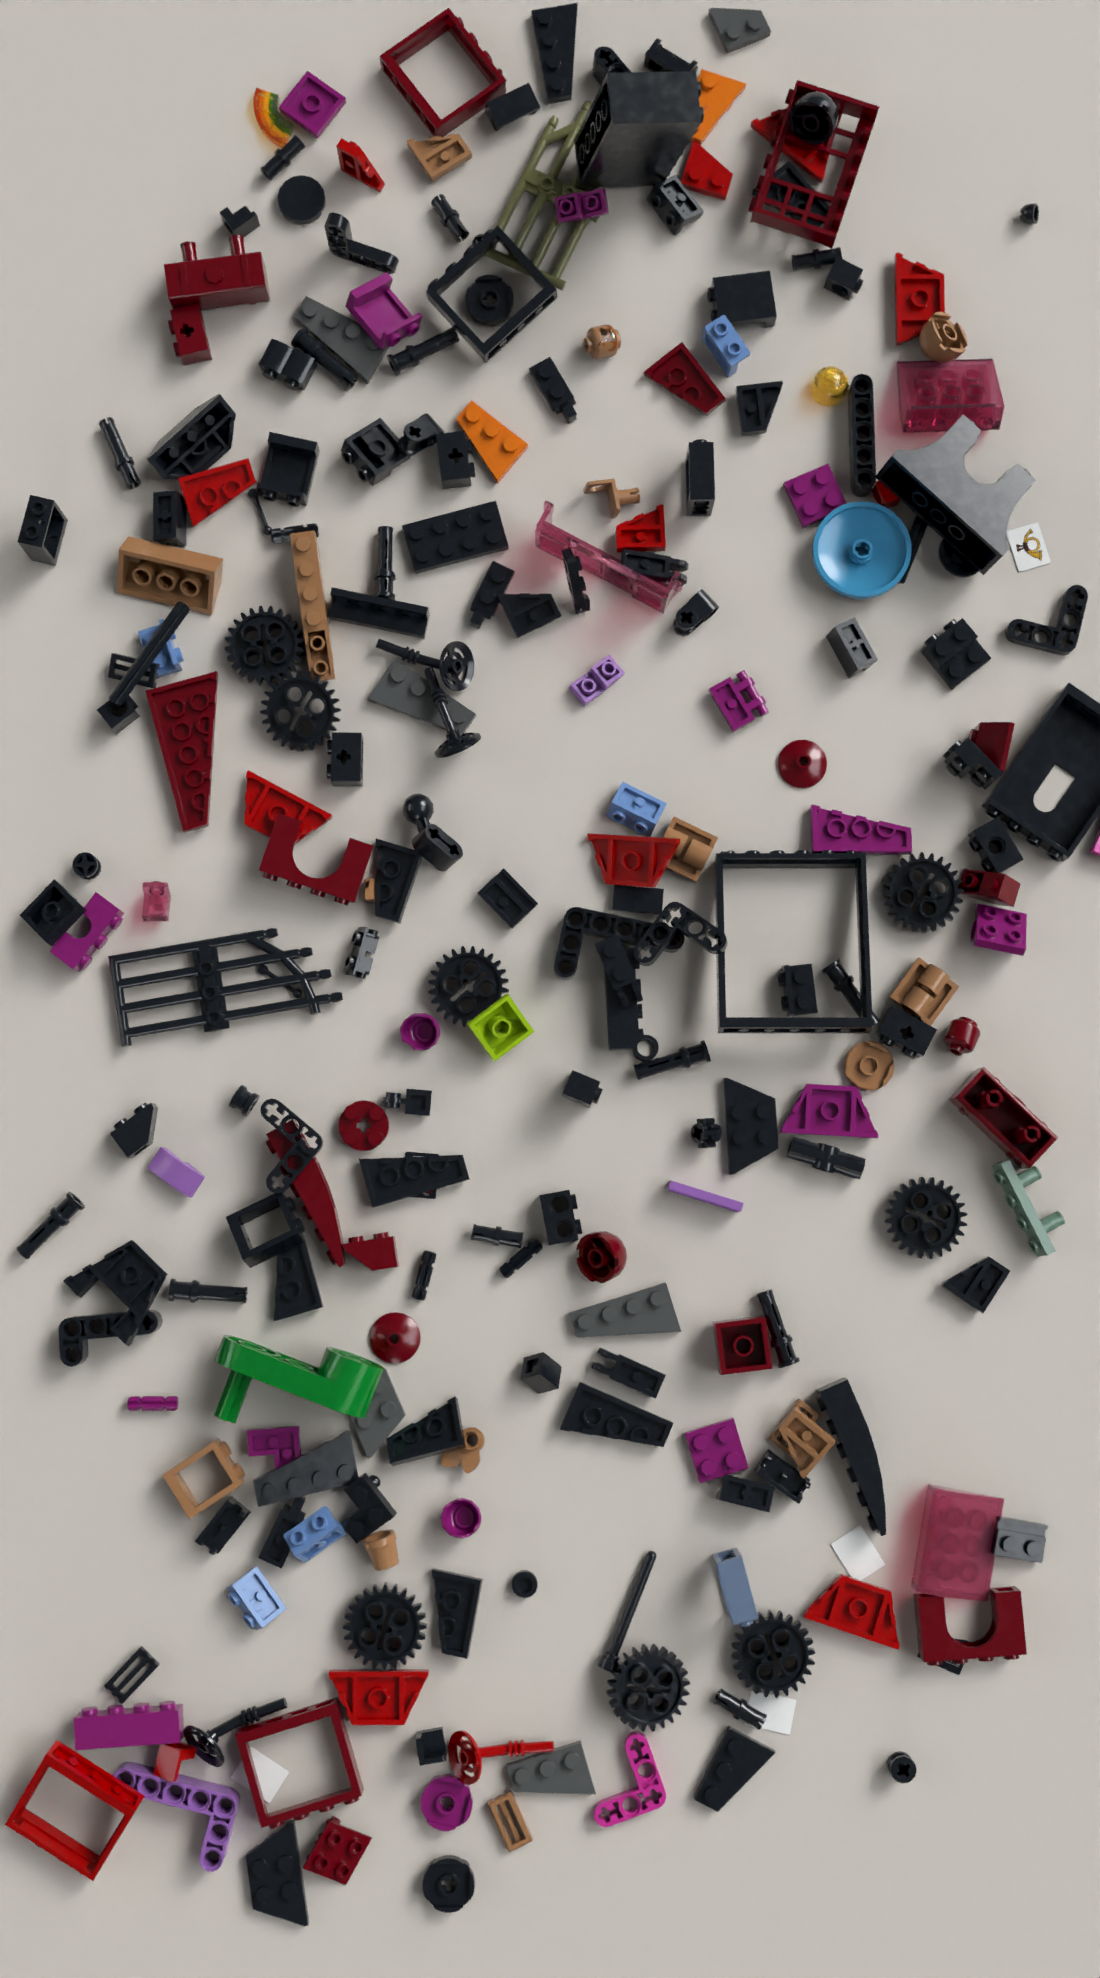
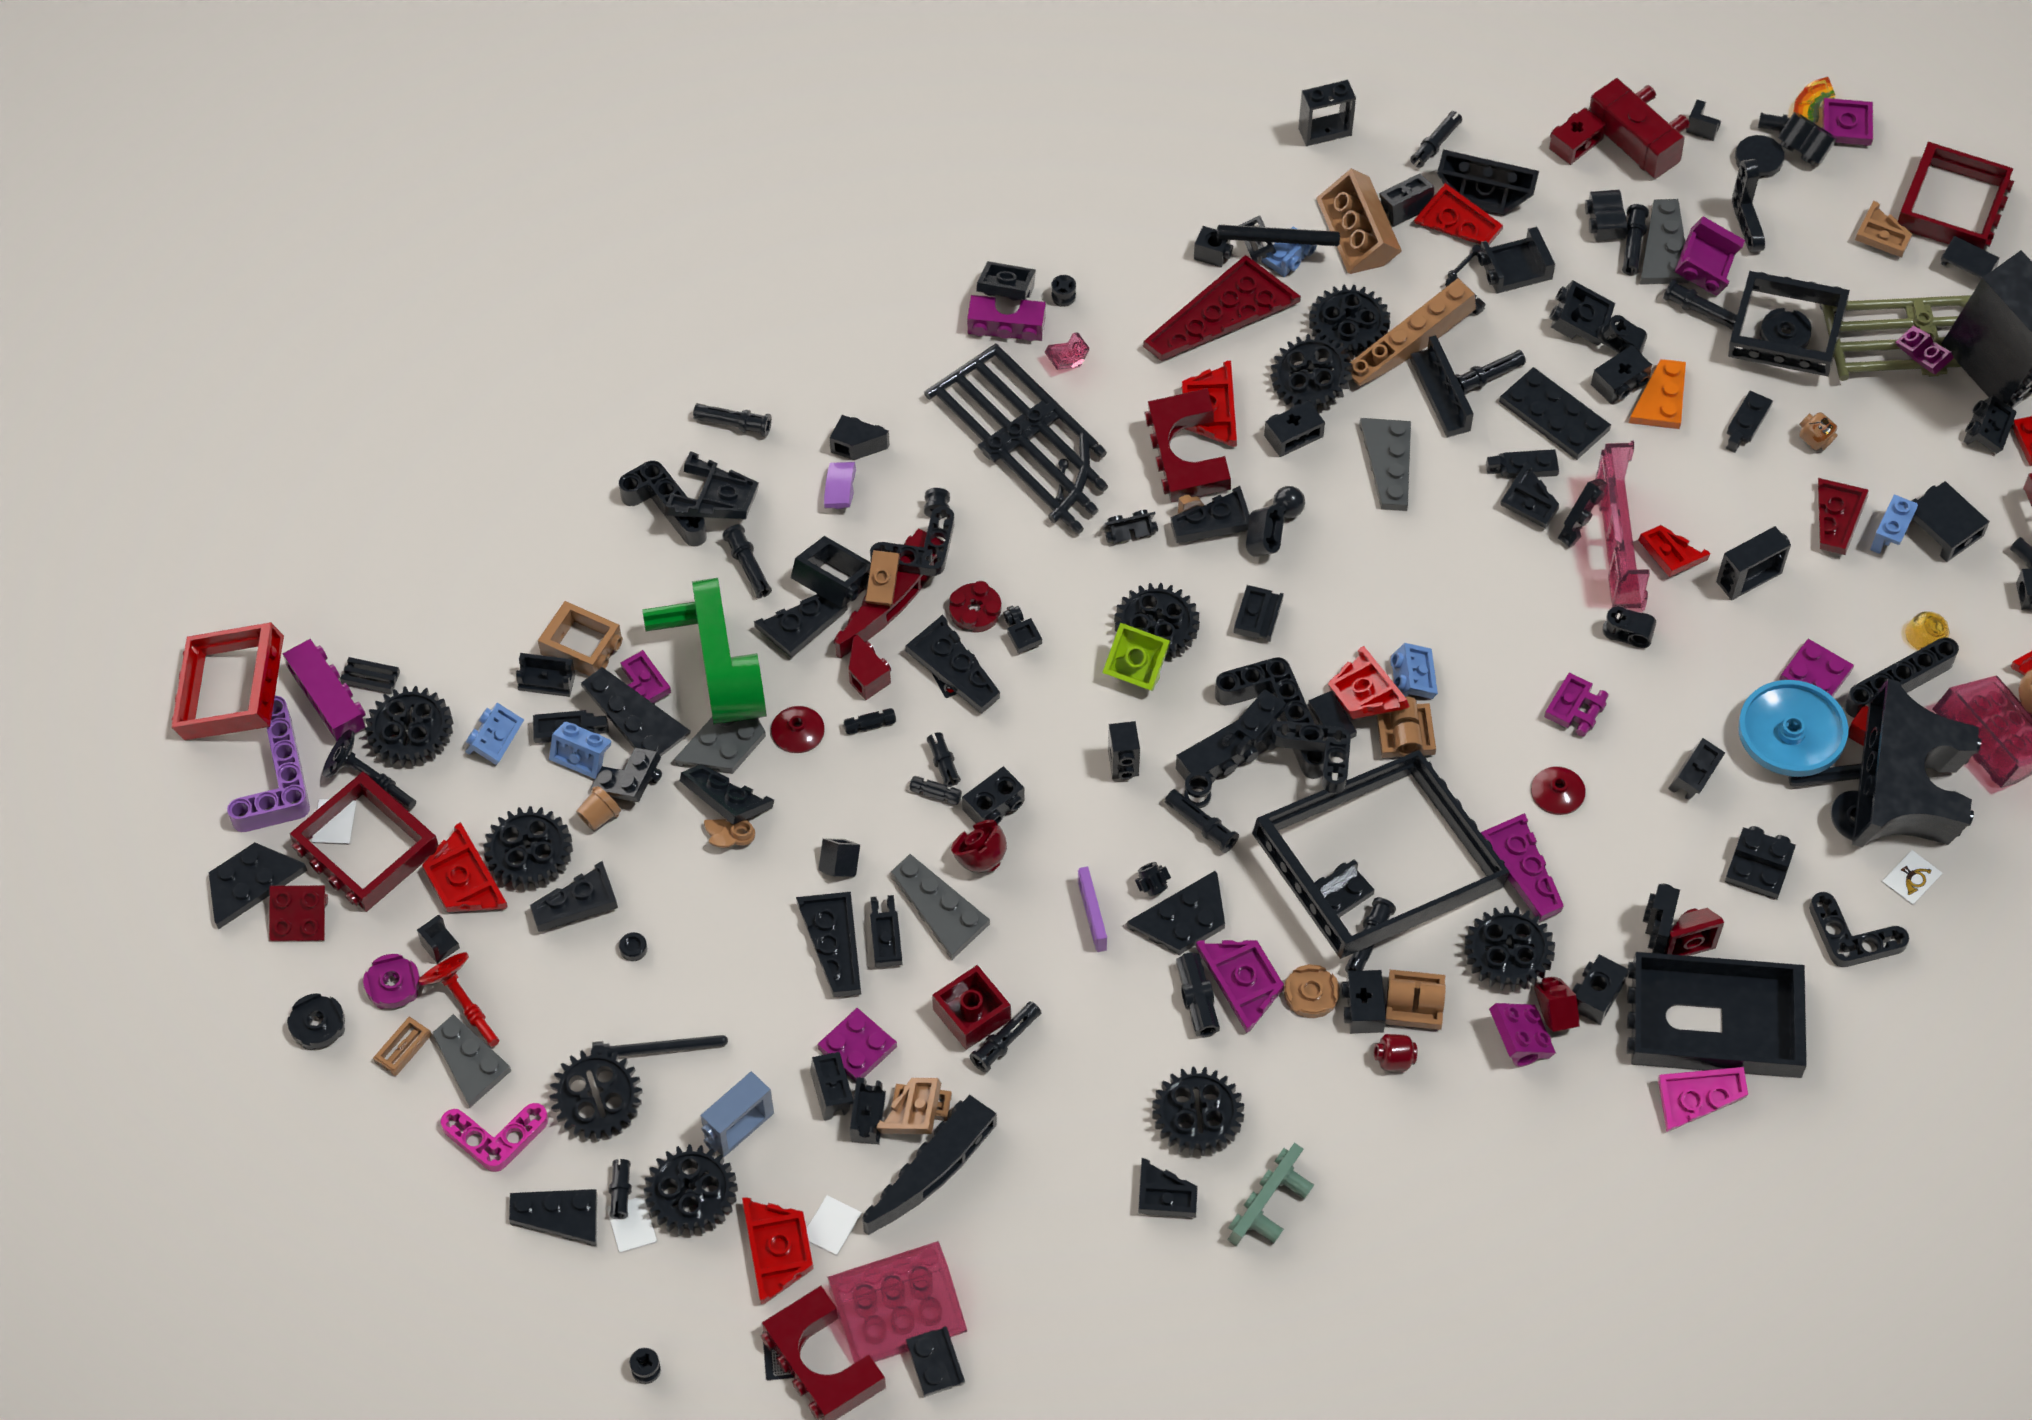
camera: 65 degrees right, 25 degrees down
(152, 1403) = (623, 571): magenta axle -> none
(170, 1759) = (312, 736): red panel -> none
(192, 1688) = (386, 724): none -> black gear
(305, 1195) = (882, 578): none -> medium nougat plate
(313, 150) = (1806, 138): none -> black brick
(357, 165) = (1820, 174): red wing -> none
(420, 1031) = (1090, 602): magenta hair -> none
(446, 666) = (1434, 459): black dish -> none
(450, 218) = (1834, 265): black pin -> none
(455, 740) = (1372, 492): black dish -> none
(461, 1518) = (664, 857): magenta hair -> none
(597, 680) = (1510, 586): medium lavender slope -> none
(615, 496) = (1687, 512): medium nougat bracket -> none
(653, 565) = (1640, 557): black hinge -> none
(756, 406) = (1860, 581): black wing -> none
(1003, 1118) = (1340, 1126): dark red piece -> none

